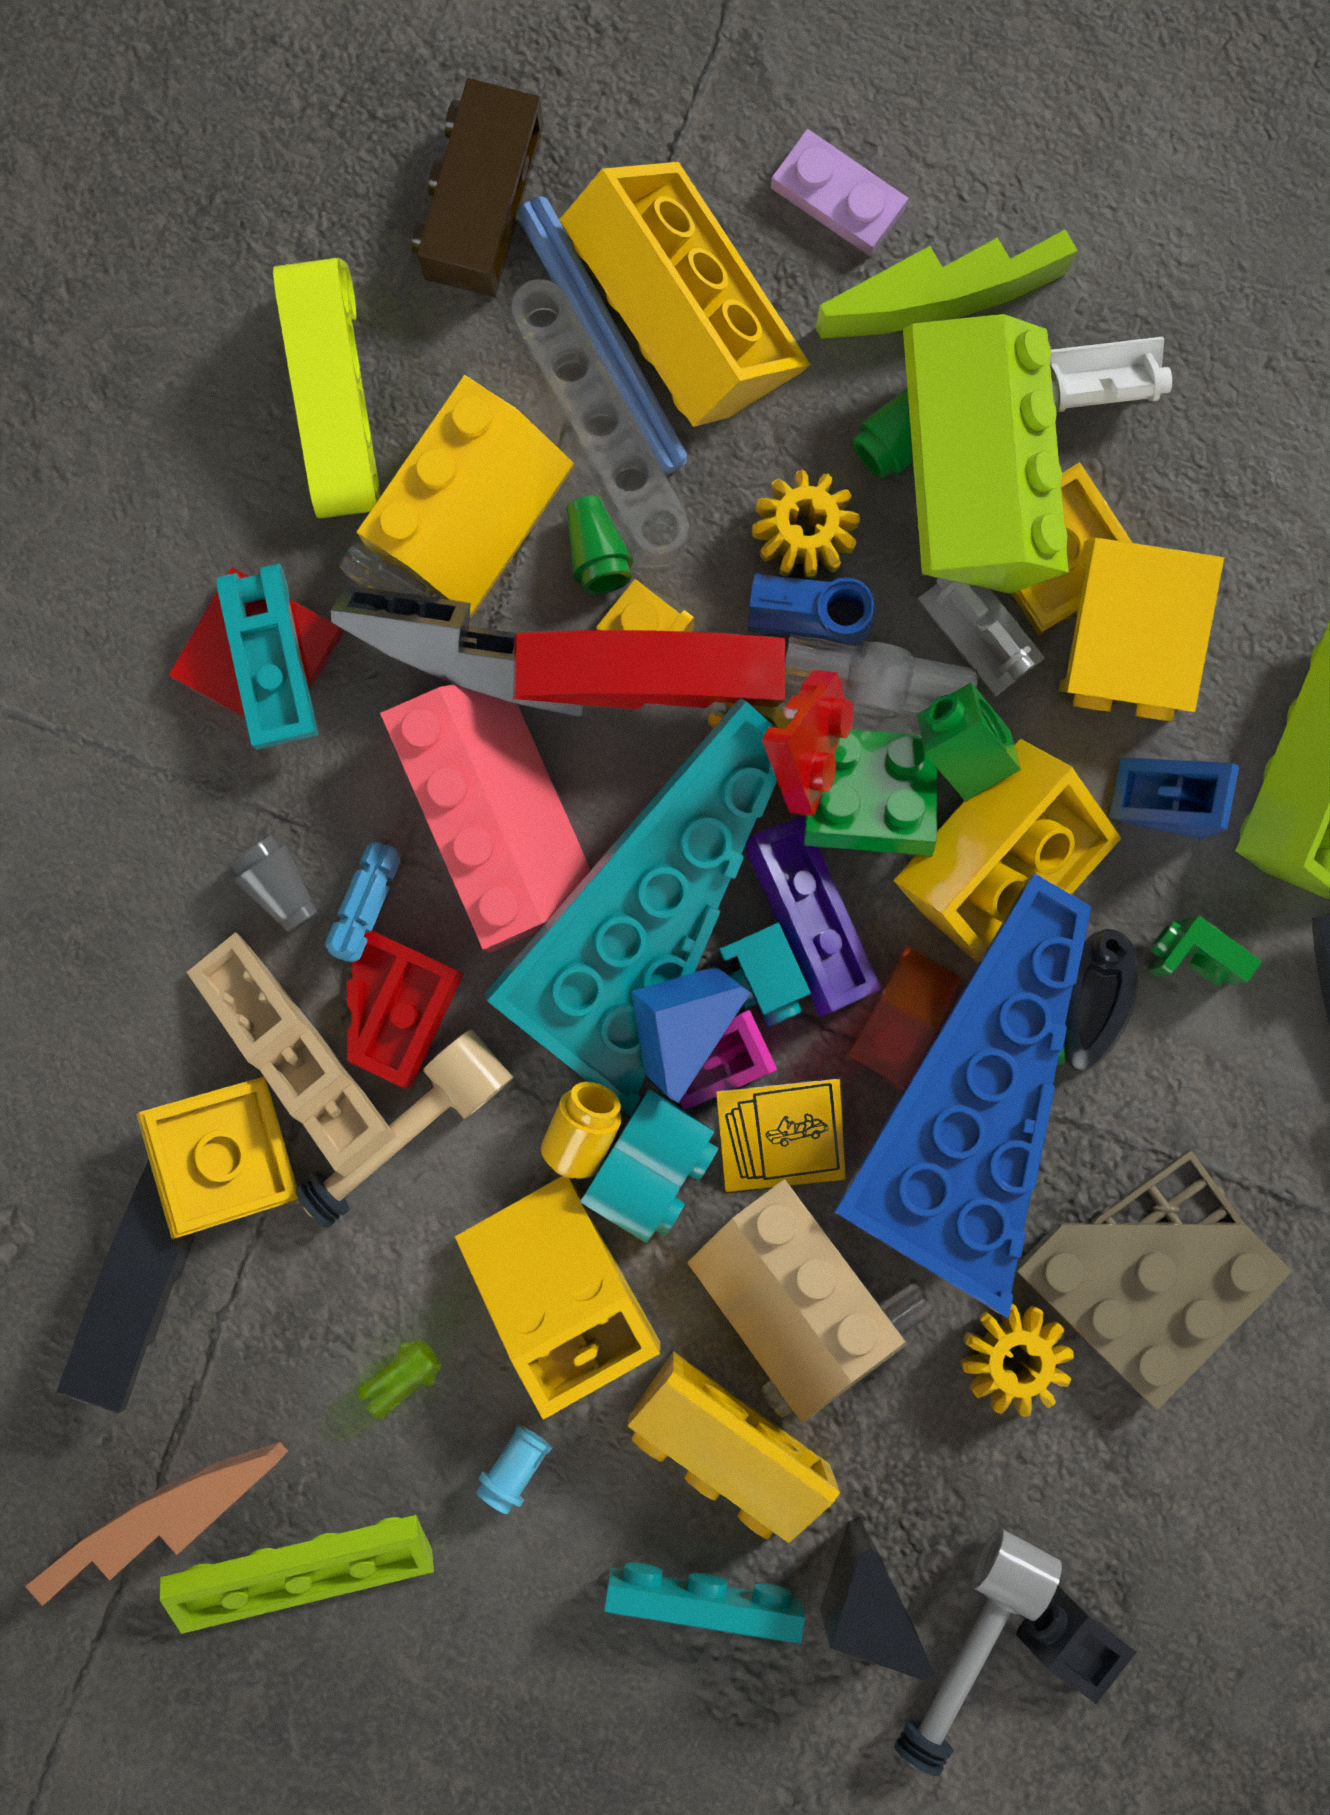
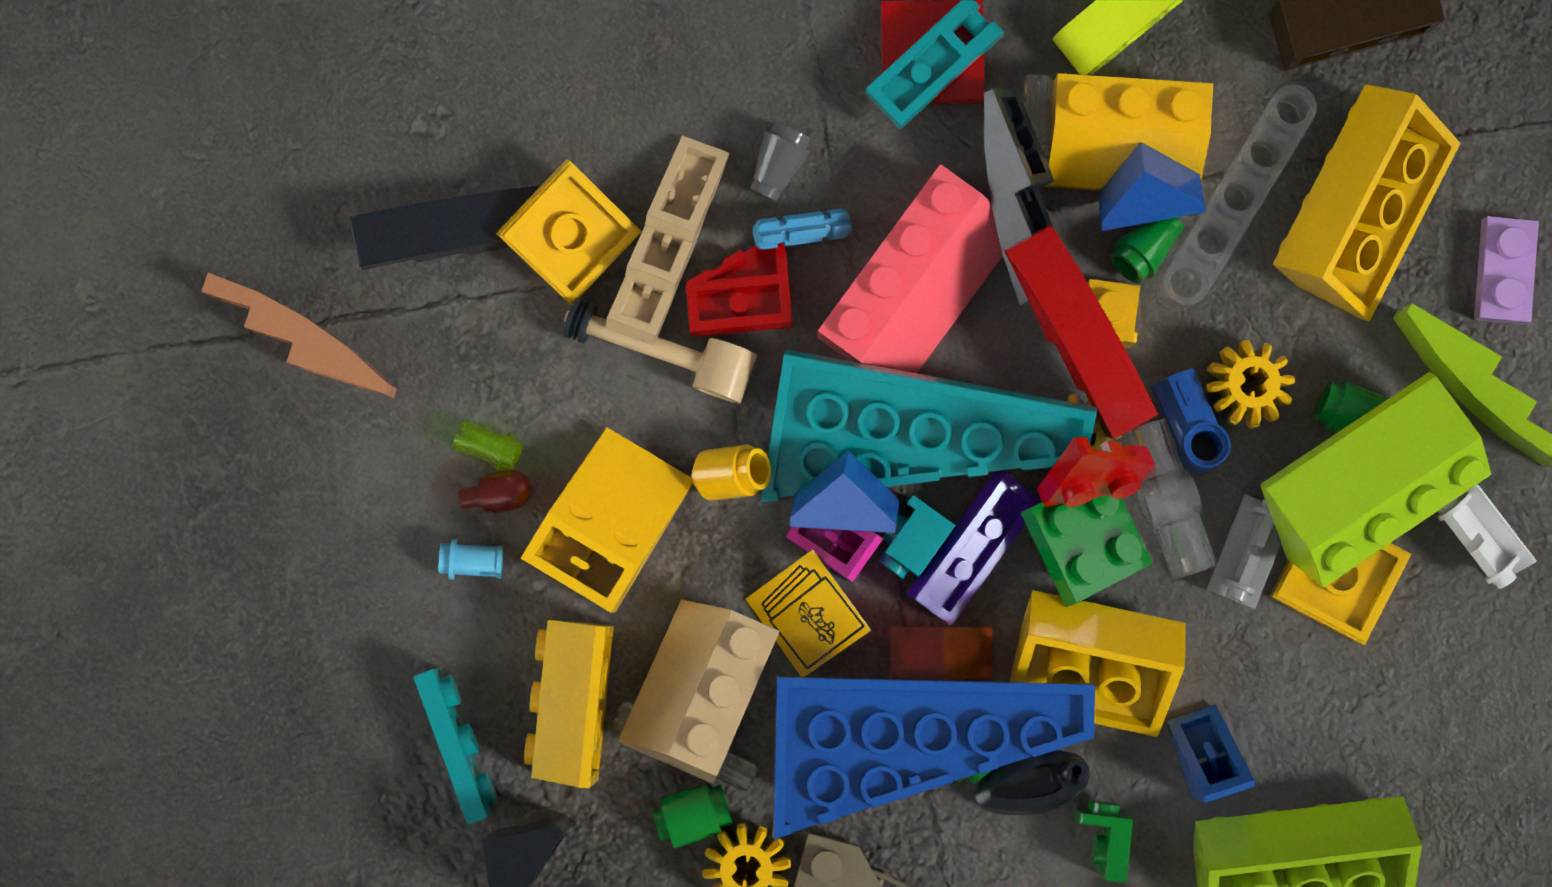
camera: 60 degrees right, 0 degrees up
(296, 1574) = (317, 453): lime plate -> none
(456, 1397) = (498, 492): none -> clear red cylinder
(539, 508) = (1149, 190): none -> blue slope
(572, 277) = (1303, 160): medium blue axle -> none
(650, 1166) = (732, 534): teal brick -> none
(927, 1385) = (692, 815): none -> green brick
(967, 741) = (1161, 586): green brick -> none
(1142, 627) = (1314, 664): yellow panel -> none

